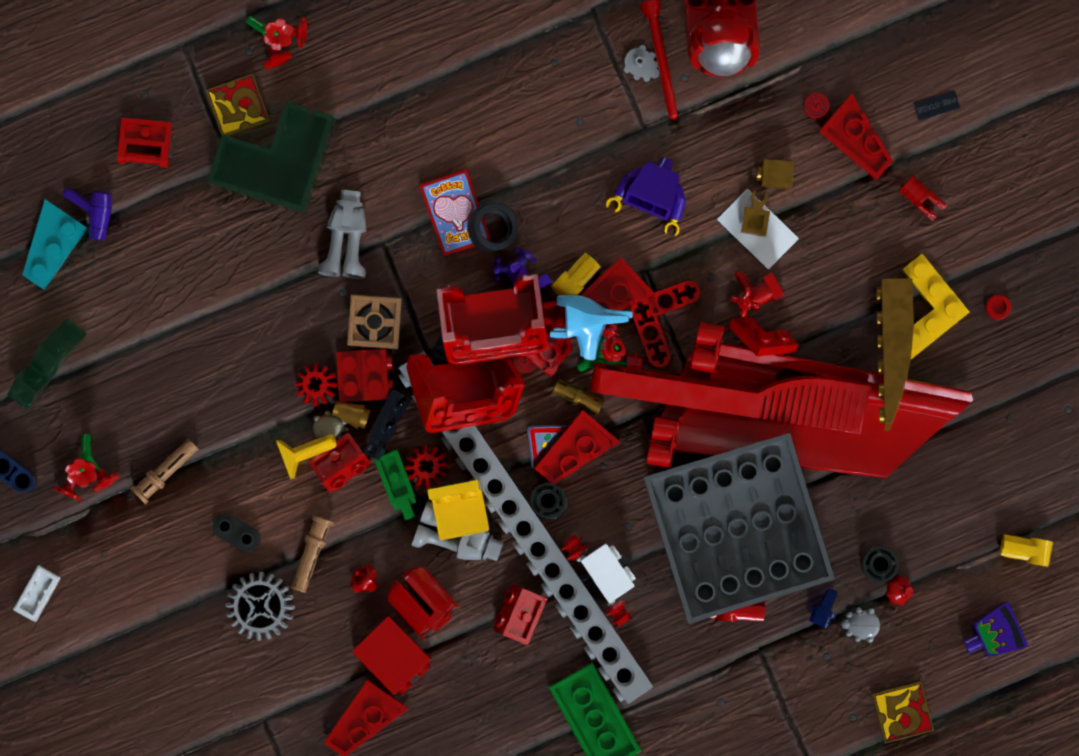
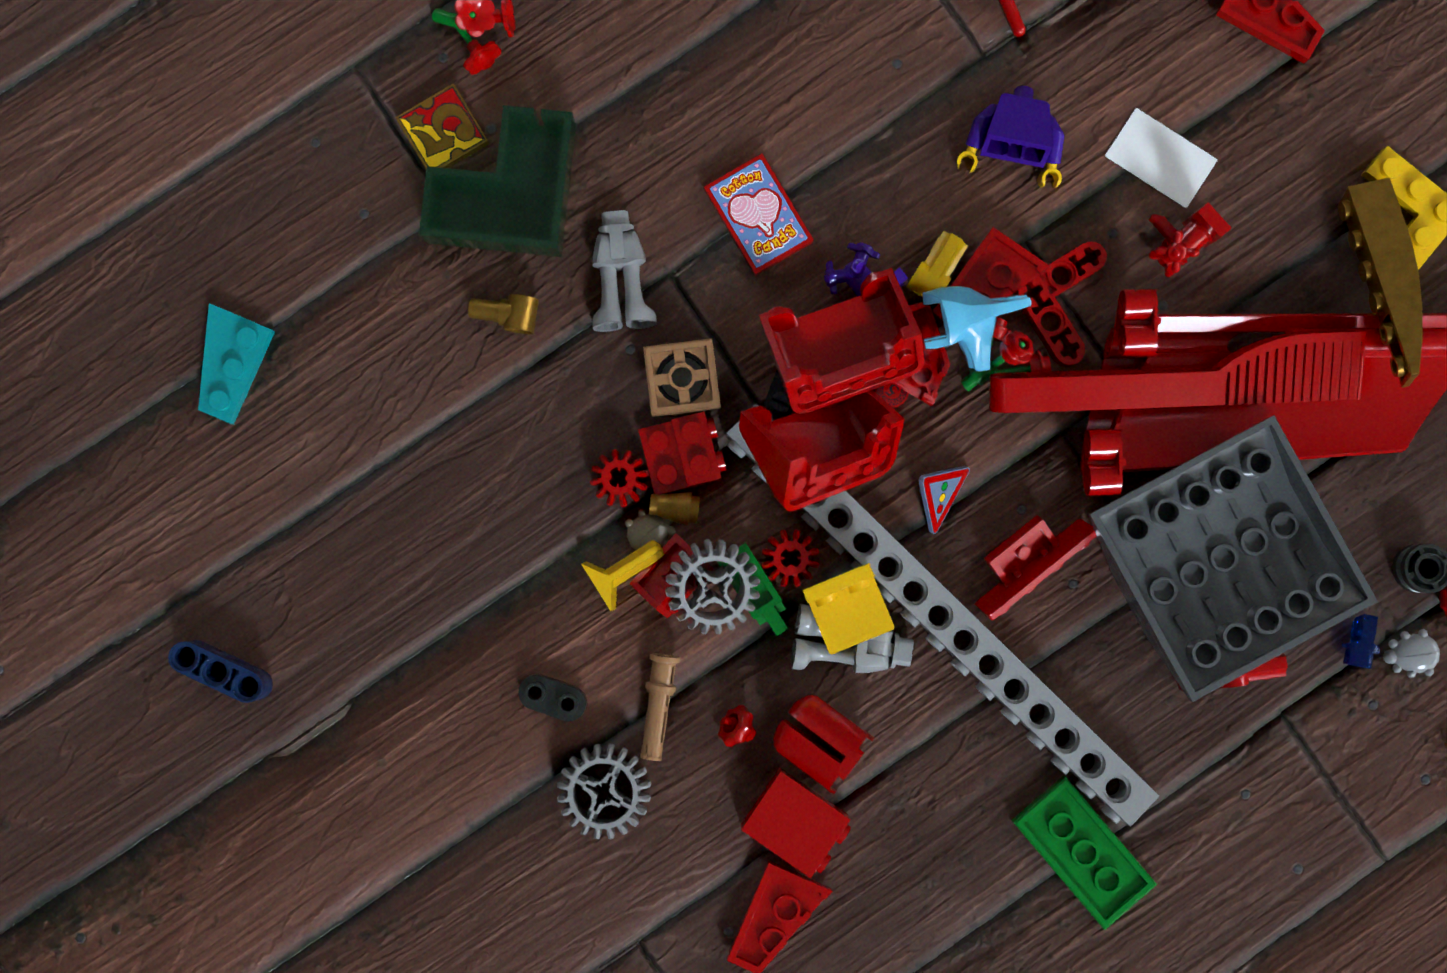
camera: 10 degrees left, 0 degrees up
(37, 593) = (299, 834): white plate -> none
(46, 362) = (252, 512): clear green arch -> none
(83, 472) = (325, 658): red plant -> none
(98, 208) = (284, 304): dark purple piece -> none
(148, 134) = (327, 190): red plate -> none
(187, 448) = (425, 646): medium nougat pin -> none
(262, 250) = (515, 313): none -> pearl gold pin
(375, 468) = (732, 608): none -> light grey gear
(386, 424) = (723, 512): black hinge -> none
(510, 223) = (829, 205): black tyre -> none
(519, 614) = (954, 732): red bracket -> none
(537, 501) = (968, 556): pearl dark grey wheel -> none
(575, 447) = (983, 491): red wing -> none
(578, 396) = (972, 424): pearl gold pin -> none
(596, 501) = (1028, 559): none -> red bracket
(606, 574) = (1065, 655): white brick -> none
(755, 218) = (1159, 143): pearl gold plate -> none
(762, 342) = (1206, 301): red plate -> none
(776, 174) = (1174, 78): pearl gold brick -> none
(918, 193) = (1366, 68): red hinge -> none

